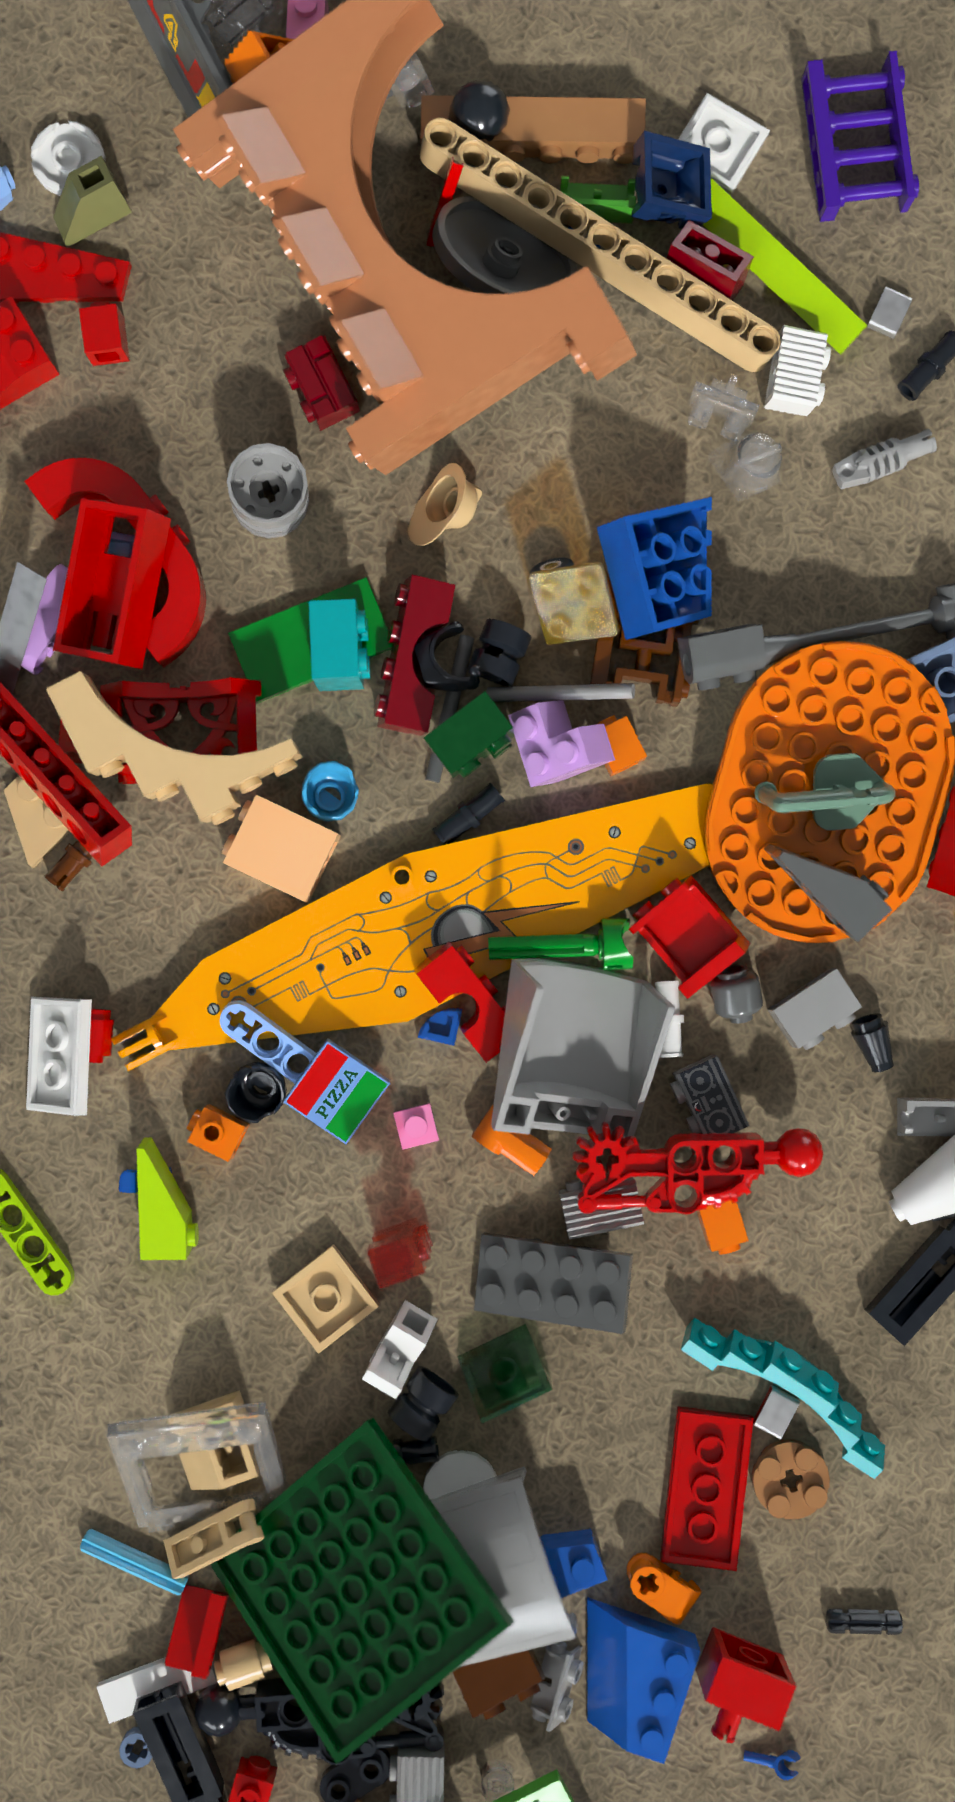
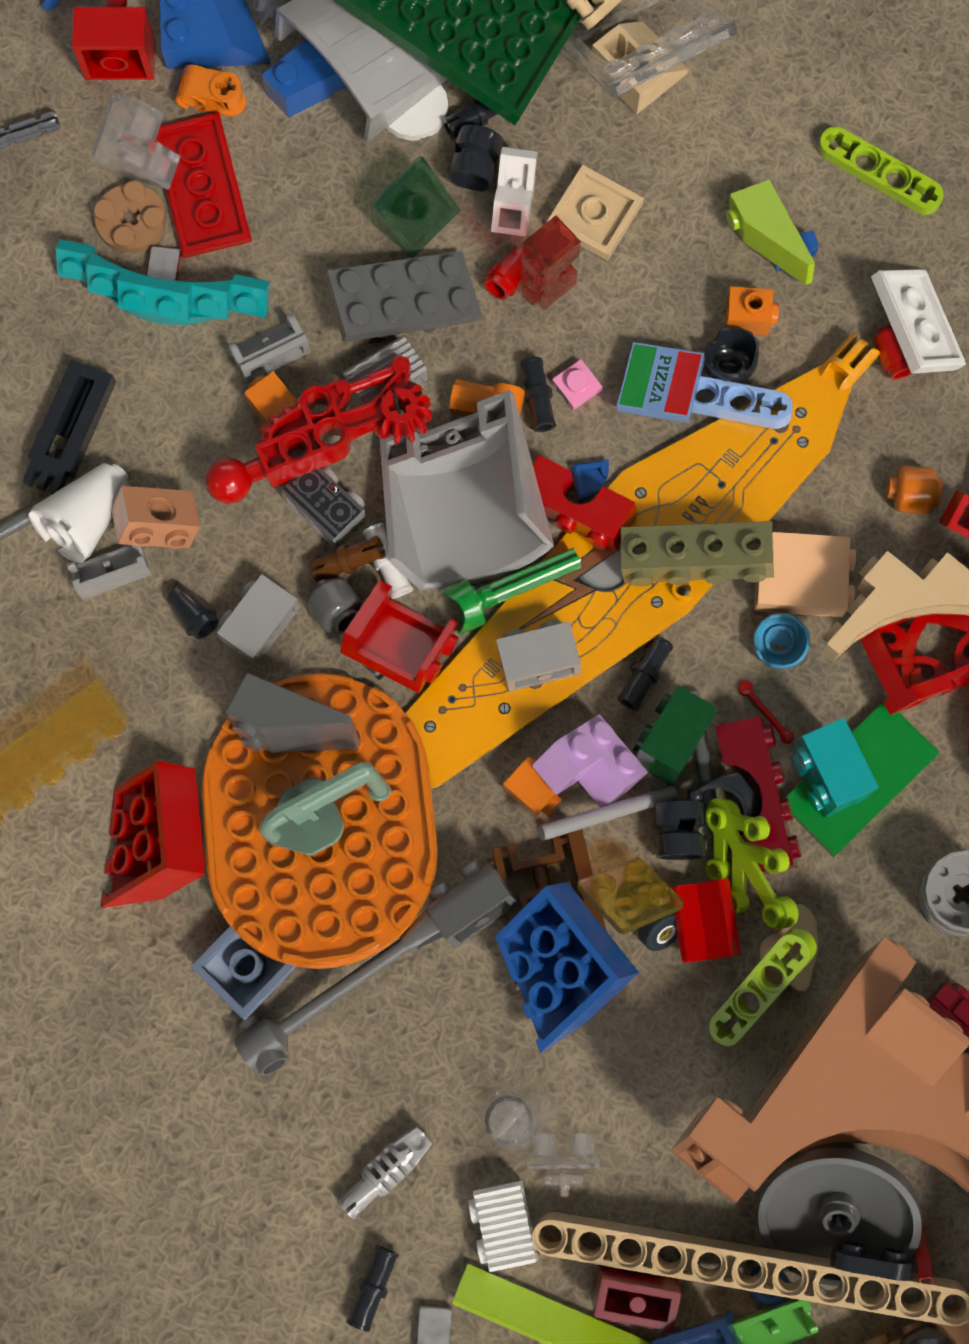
camera: 155 degrees right, 10 degrees down
(138, 889) = (915, 490): none -> orange head
(362, 705) = (746, 689): none -> red hinge
(376, 901) = (697, 553): none -> olive brick
(443, 1266) = (505, 276): none -> red cone
(455, 636) = (725, 821): none -> lime plant
(458, 1130) = (538, 394): none -> black pin
(487, 472) = (763, 989): none -> lime beam
(495, 202) = (855, 1259): none -> black plate
(508, 562) = (706, 921): none -> red panel
(565, 865) = (539, 655): none -> light grey brick
(703, 1281) = (270, 349): none -> light grey hinge
(708, 1033) = (347, 559): none -> reddish brown pin
(770, 1557) = (128, 143): none -> clear brick
(860, 1149) = (155, 517): none -> nougat brick

